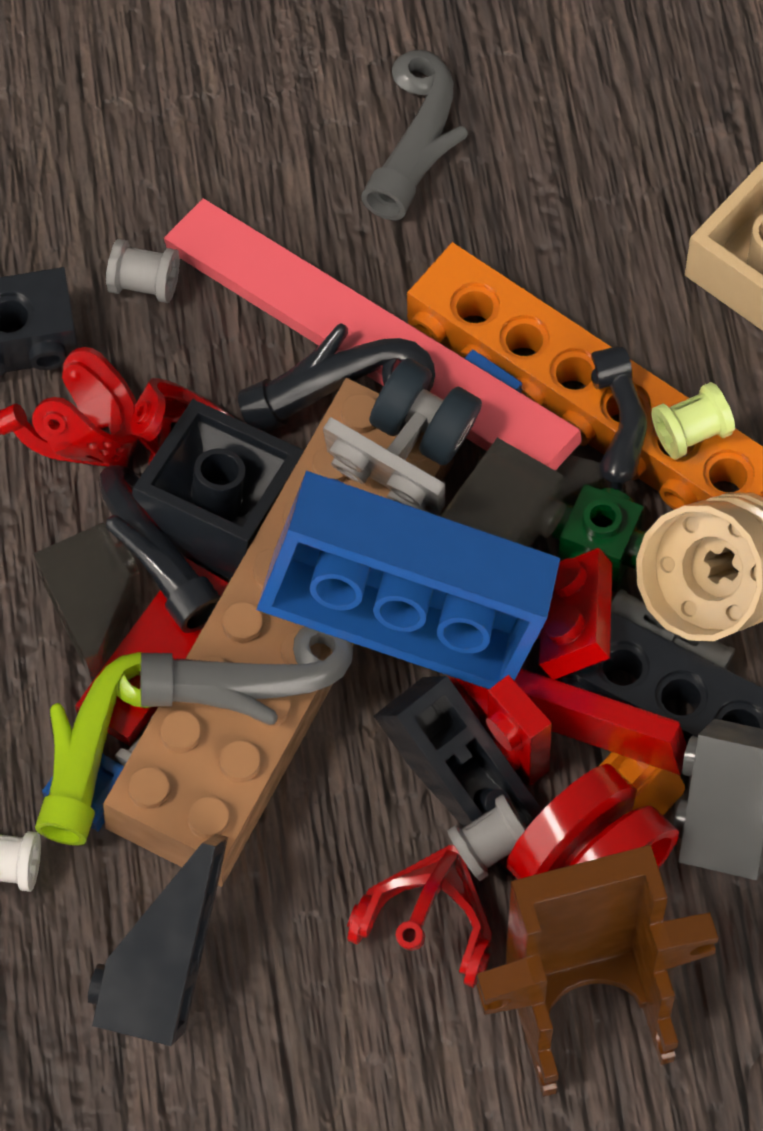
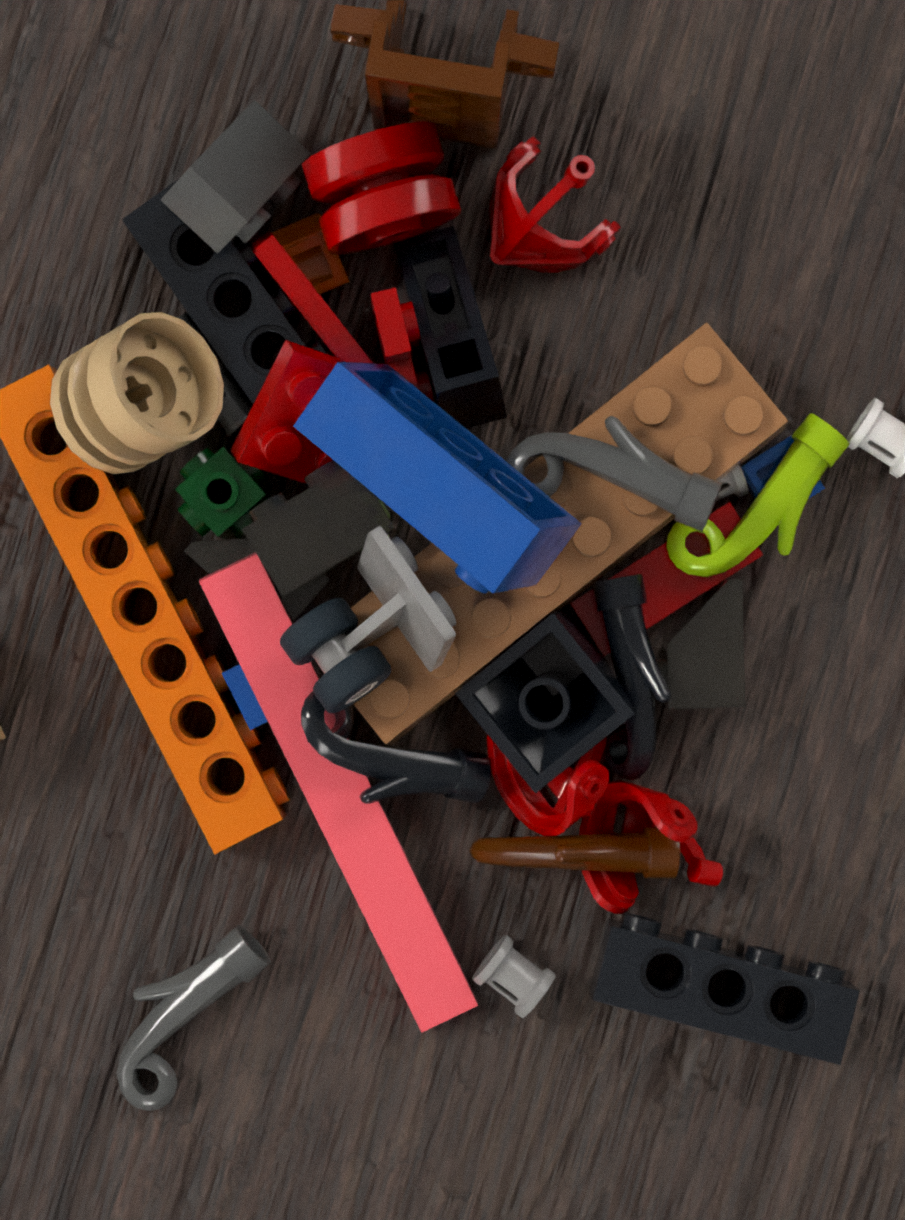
camera: 160 degrees left, 25 degrees up
(155, 968) = (797, 271): black slope -> none
(193, 359) = (615, 852): none -> reddish brown plant
(488, 837) = (461, 244): light grey bush -> none
(623, 454) = (170, 547): black piece -> none
(693, 420) = (88, 546): yellowish green bush -> none

